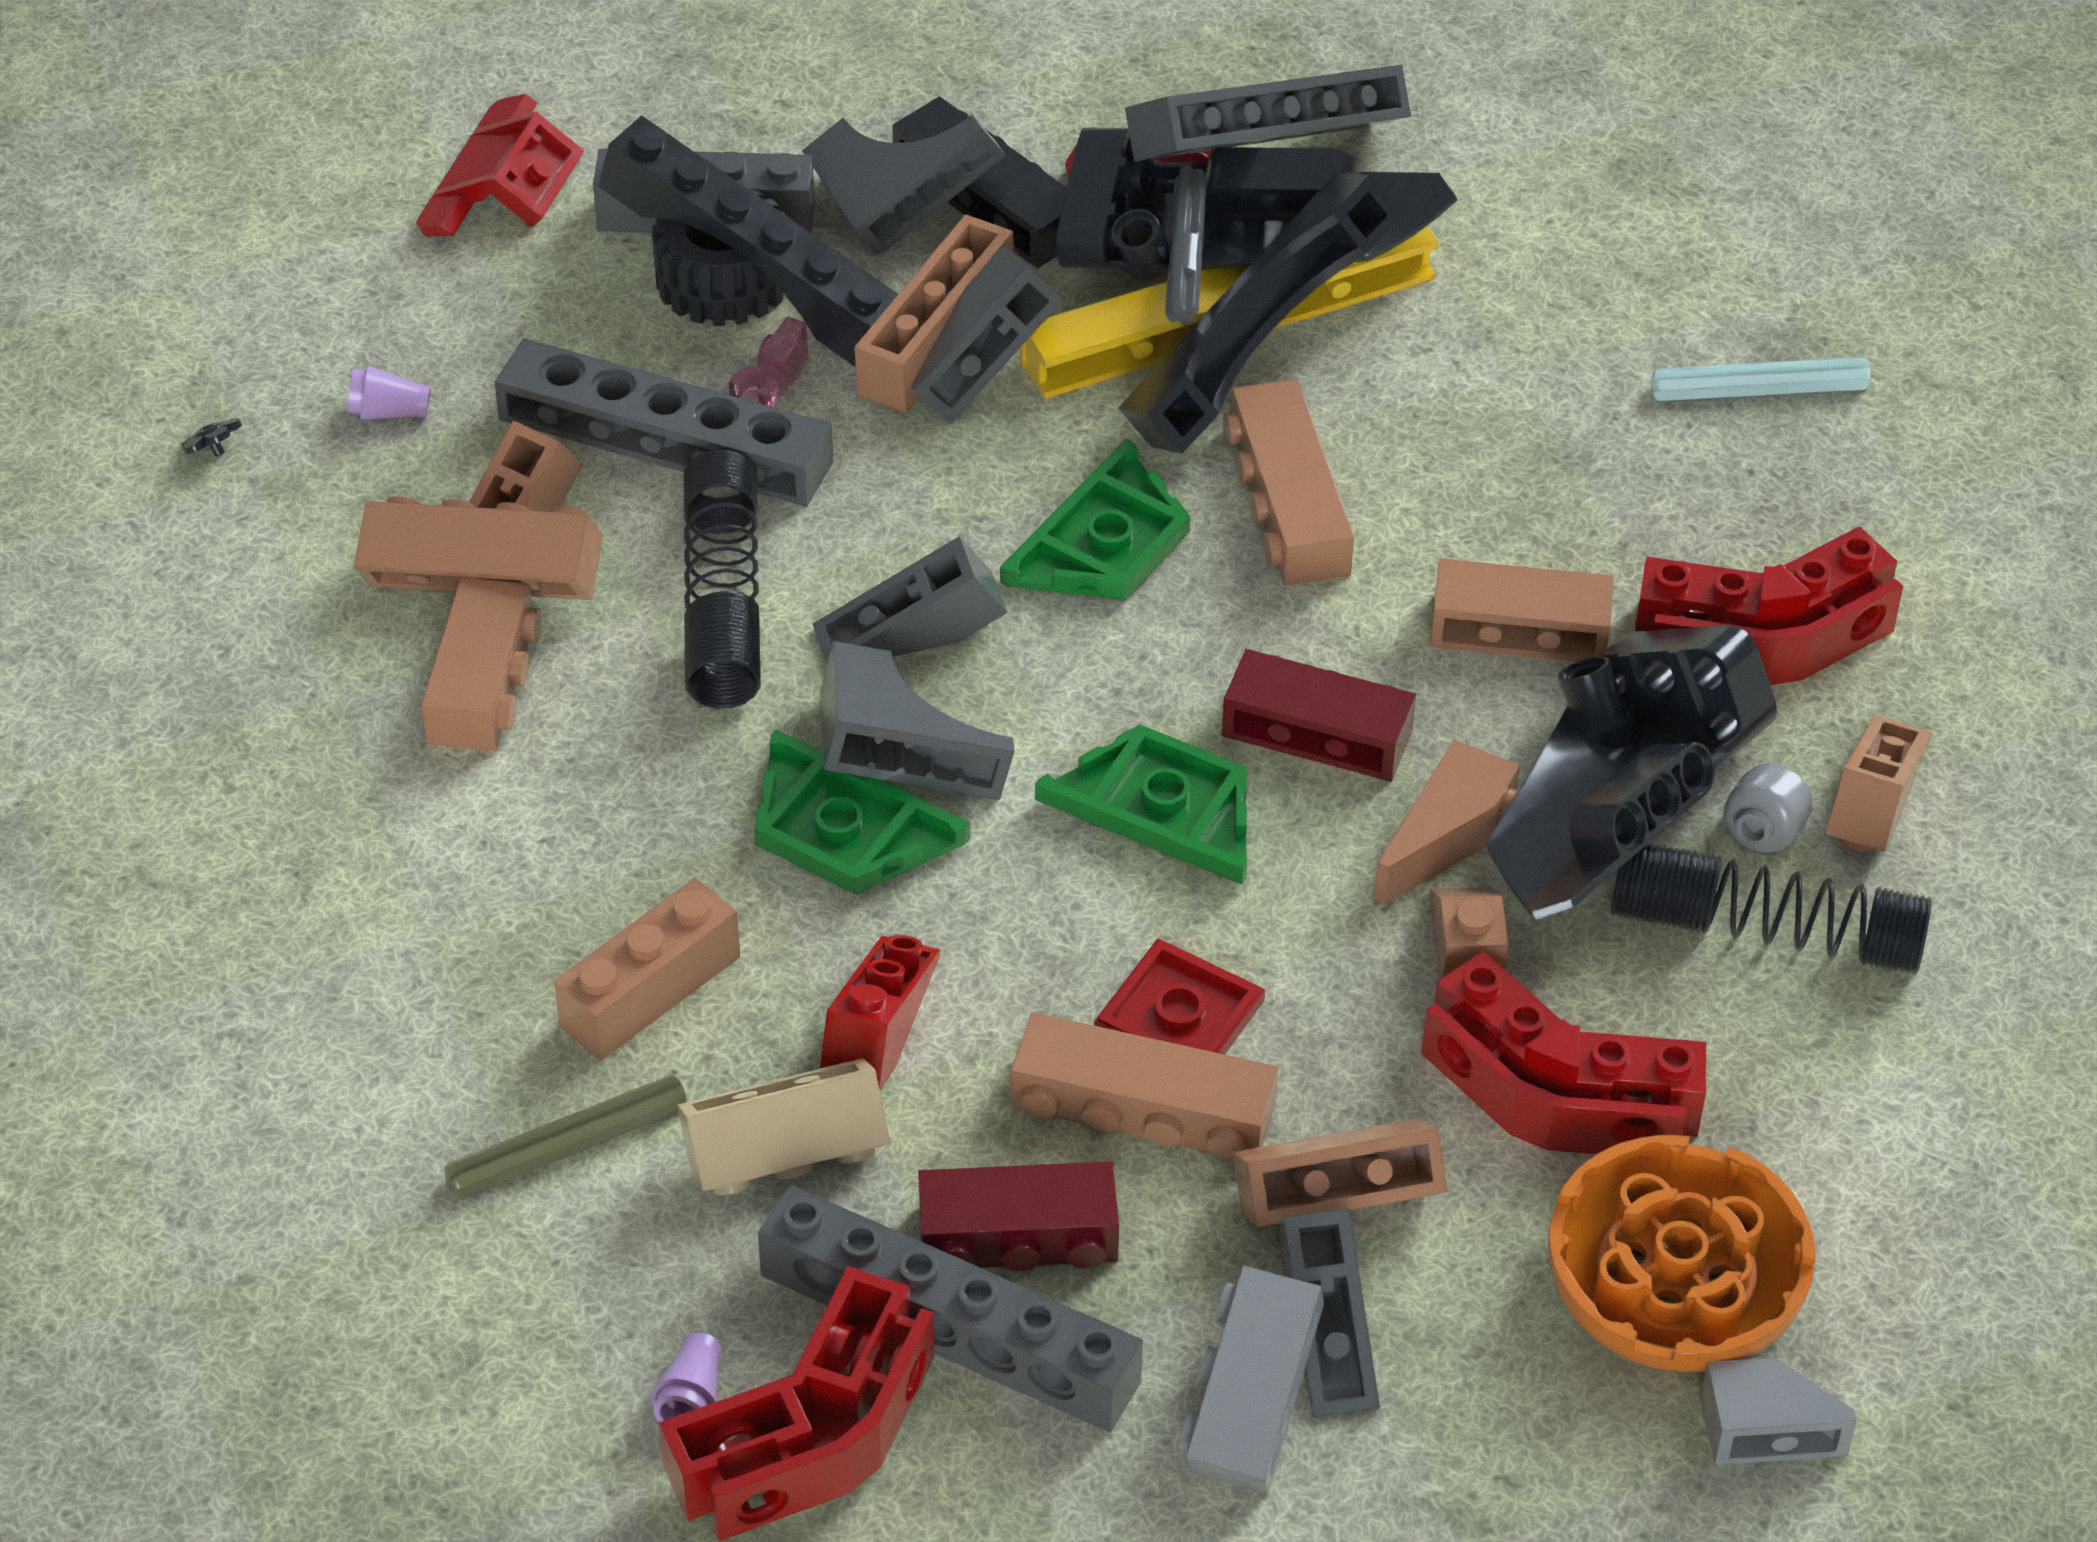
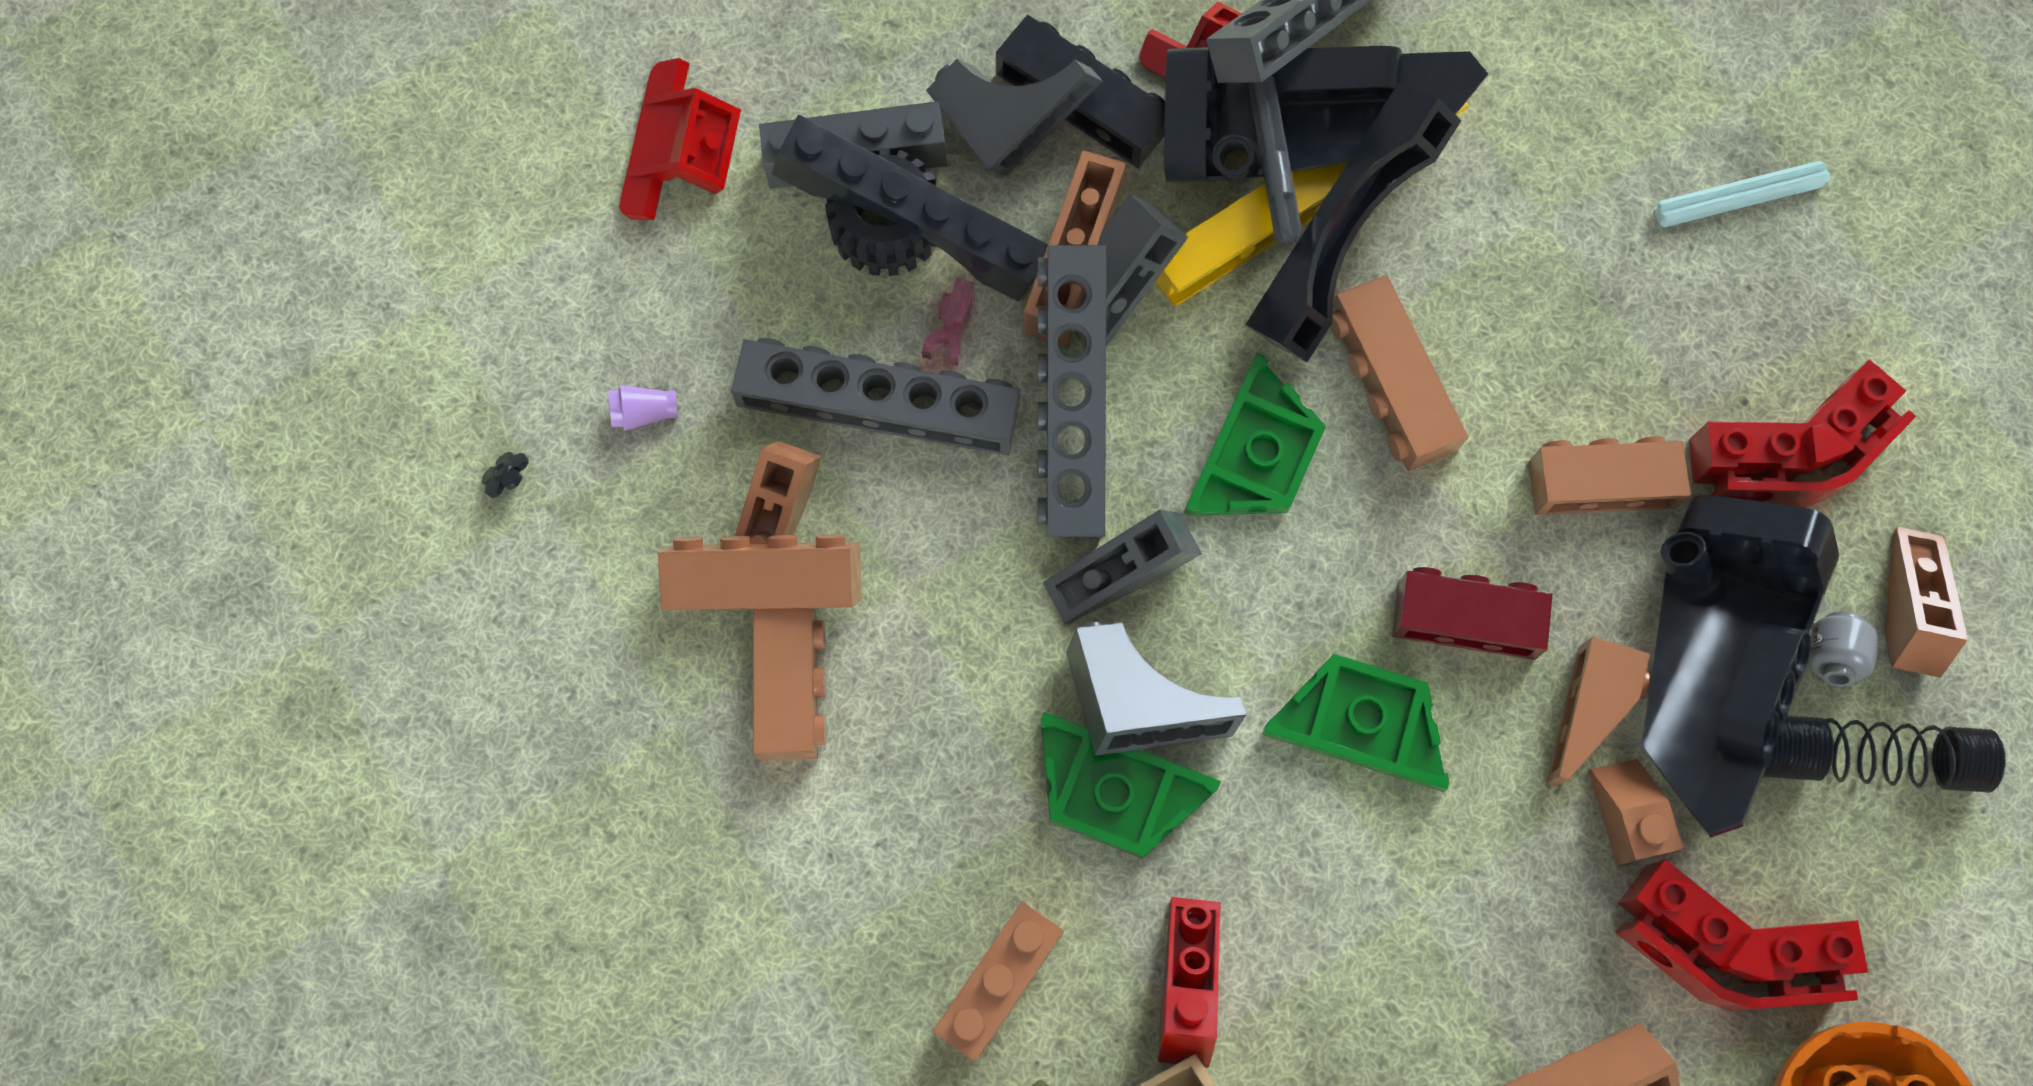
camera: 10 degrees left, 25 degrees up
(722, 625) = (980, 619): black piece -> none
(907, 291) = (1086, 268): none -> dark grey brick
(1142, 1087) = (1418, 1026): nougat brick -> none
(1182, 1001) = (1422, 931): red tile -> none

